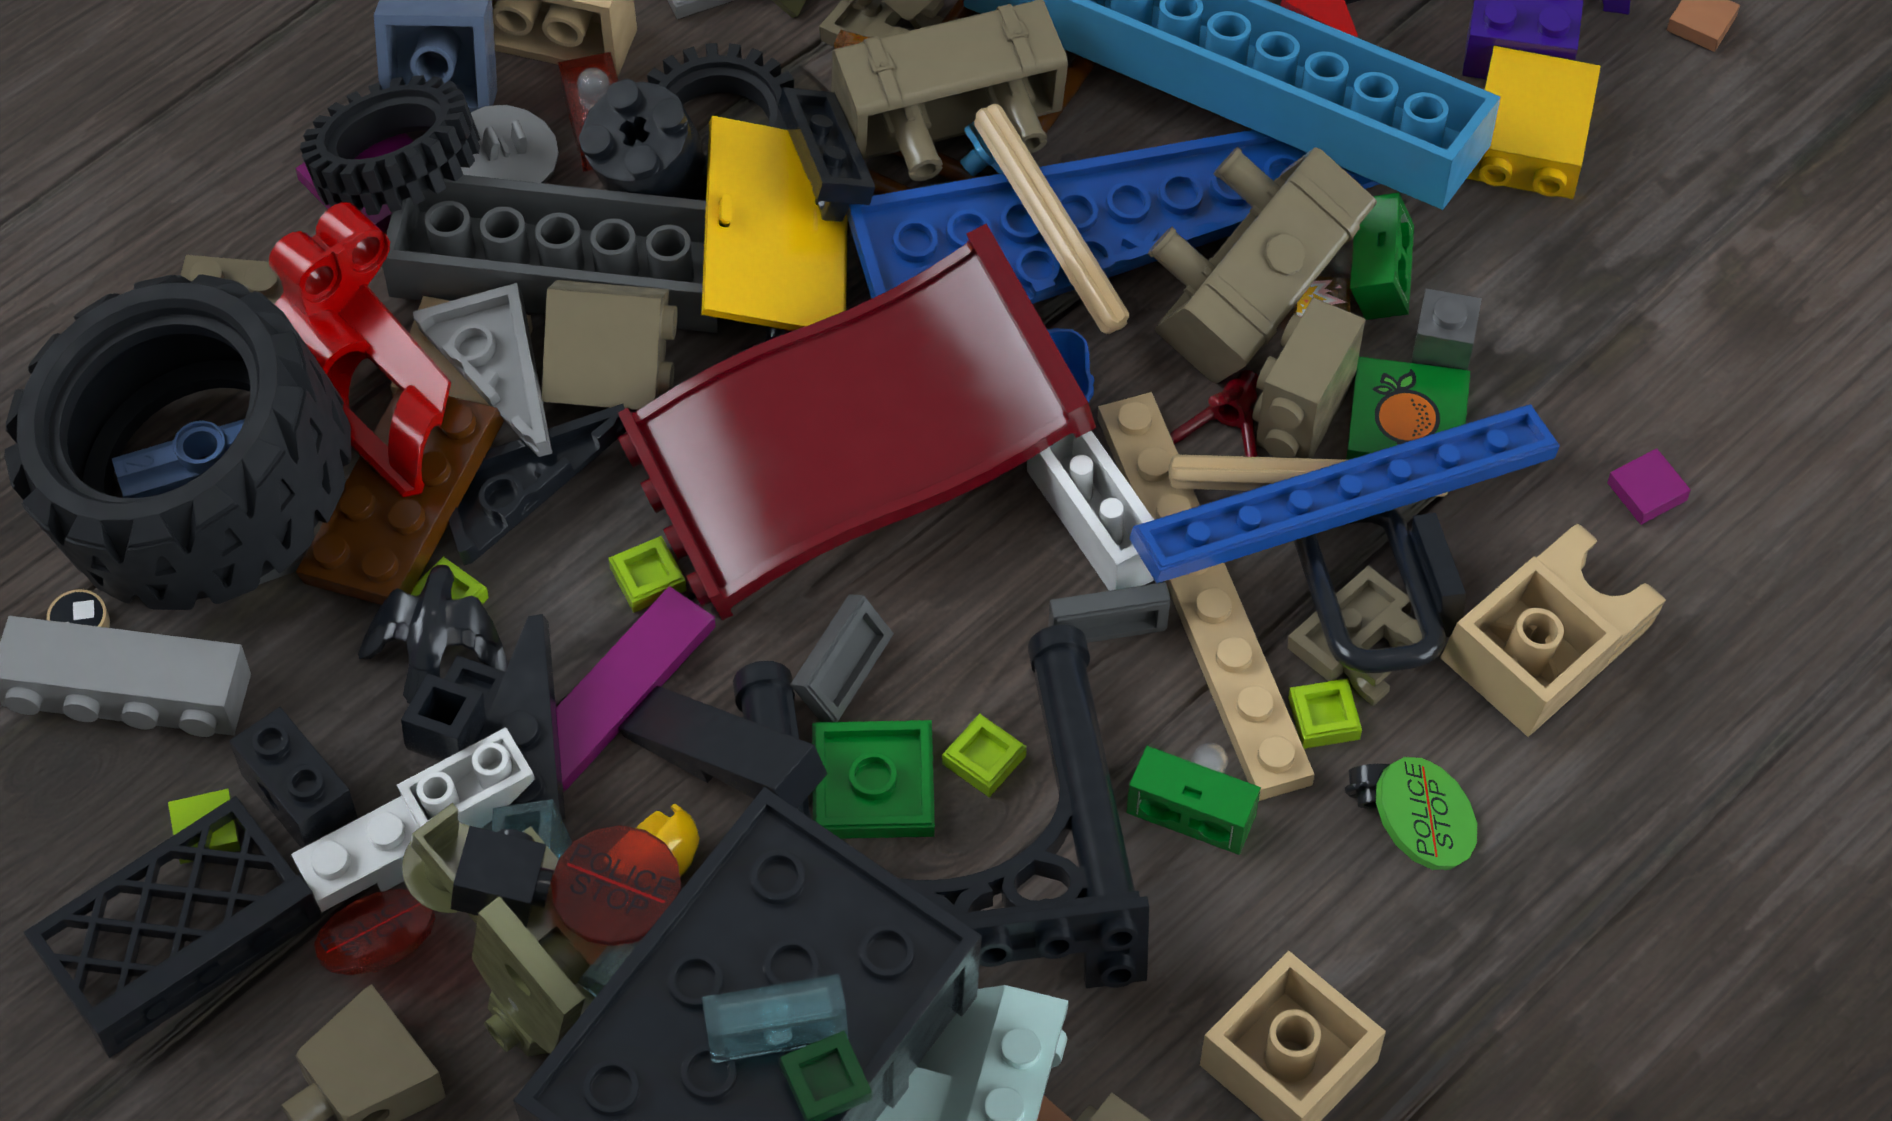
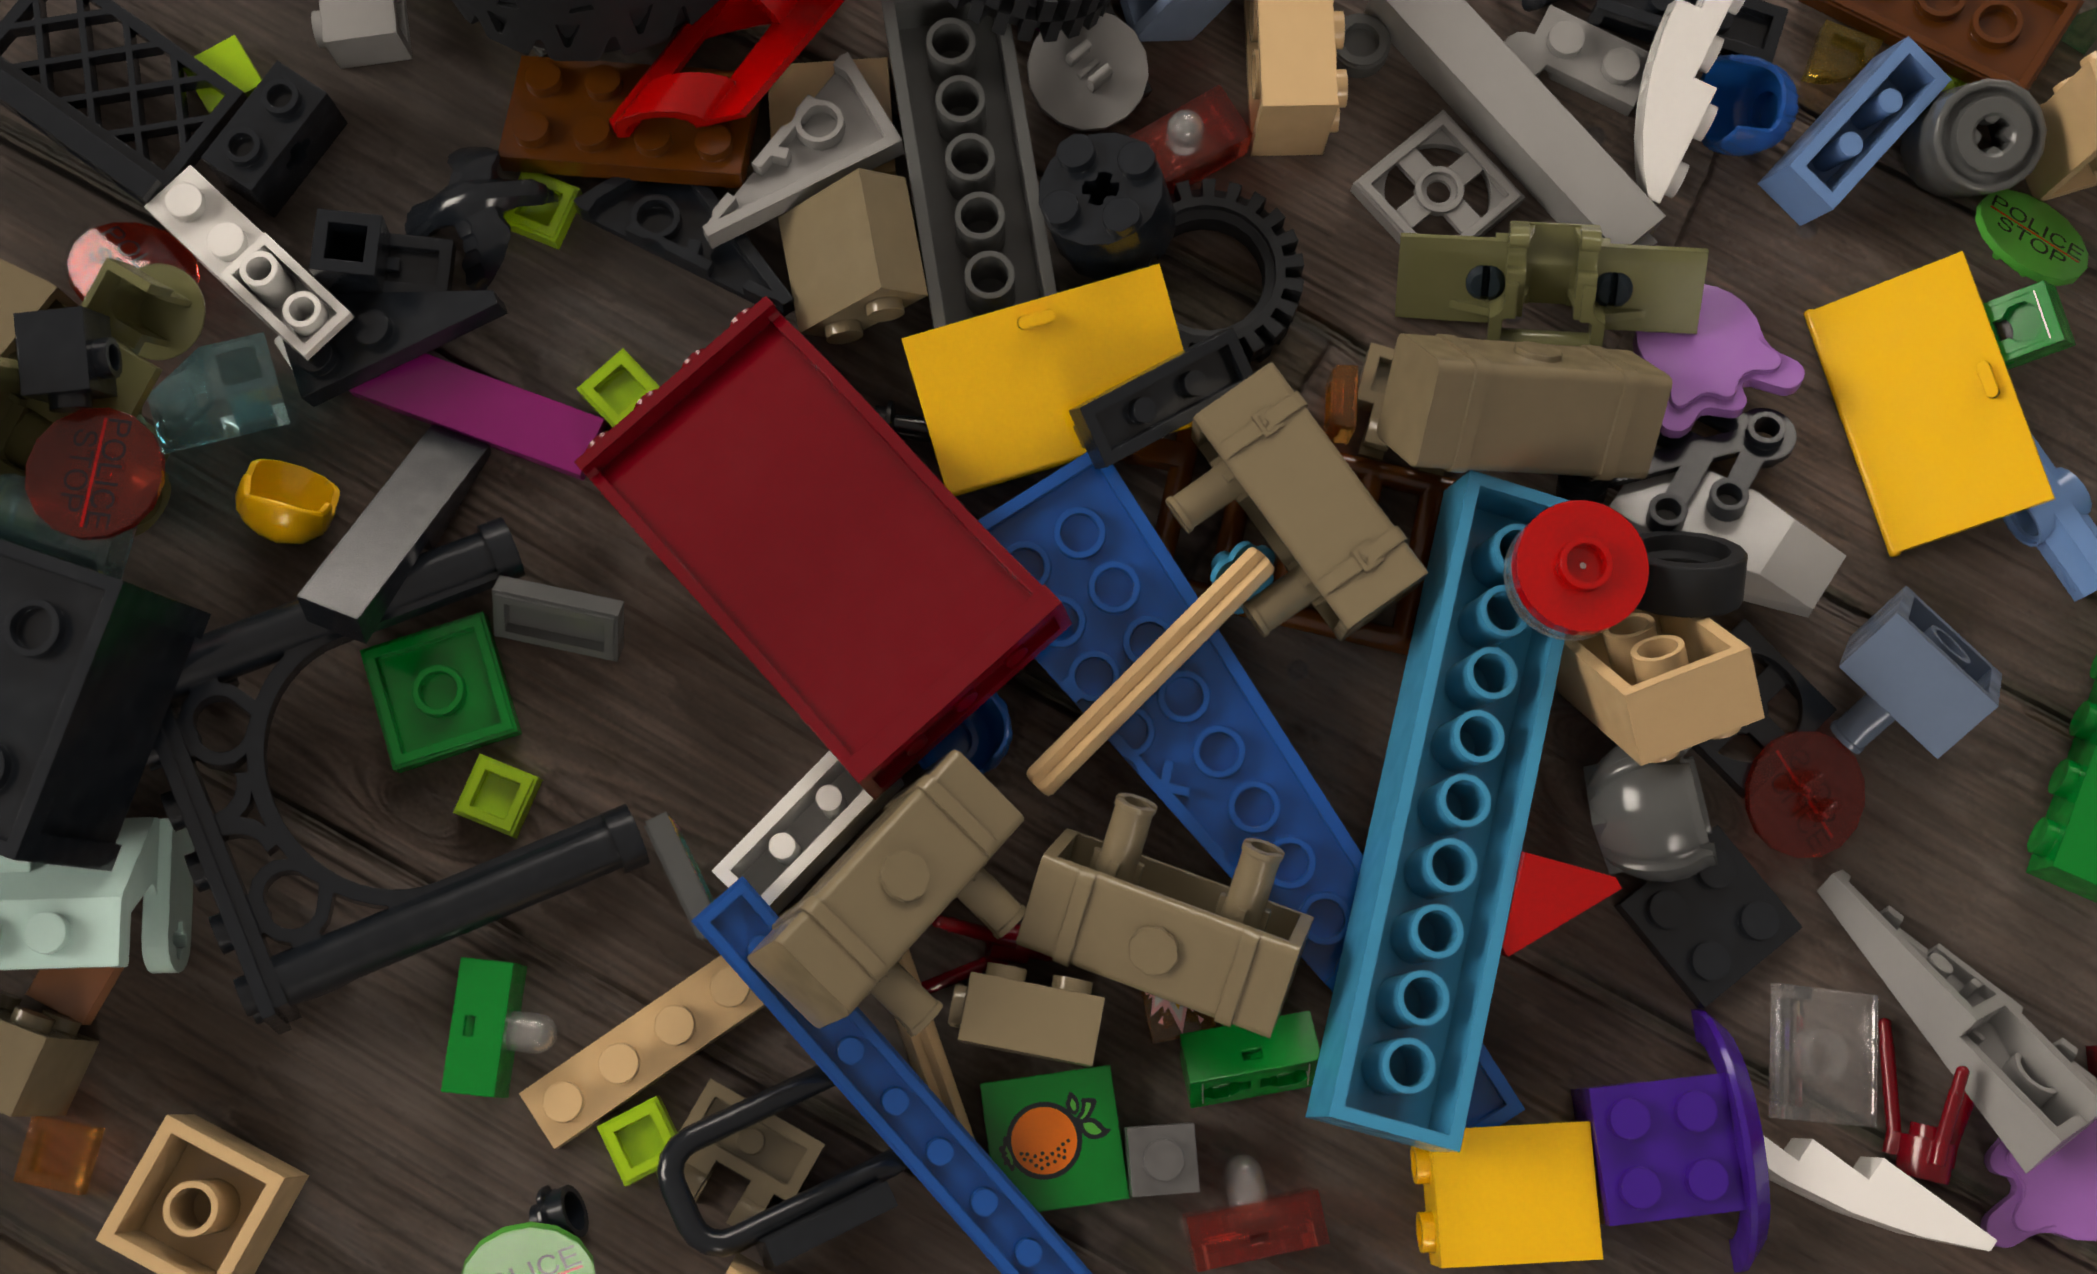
camera: 70 degrees right, 20 degrees up
(1186, 420) = (886, 894): none -> dark tan piece
(1512, 290) = (1253, 1222): none -> clear red piece

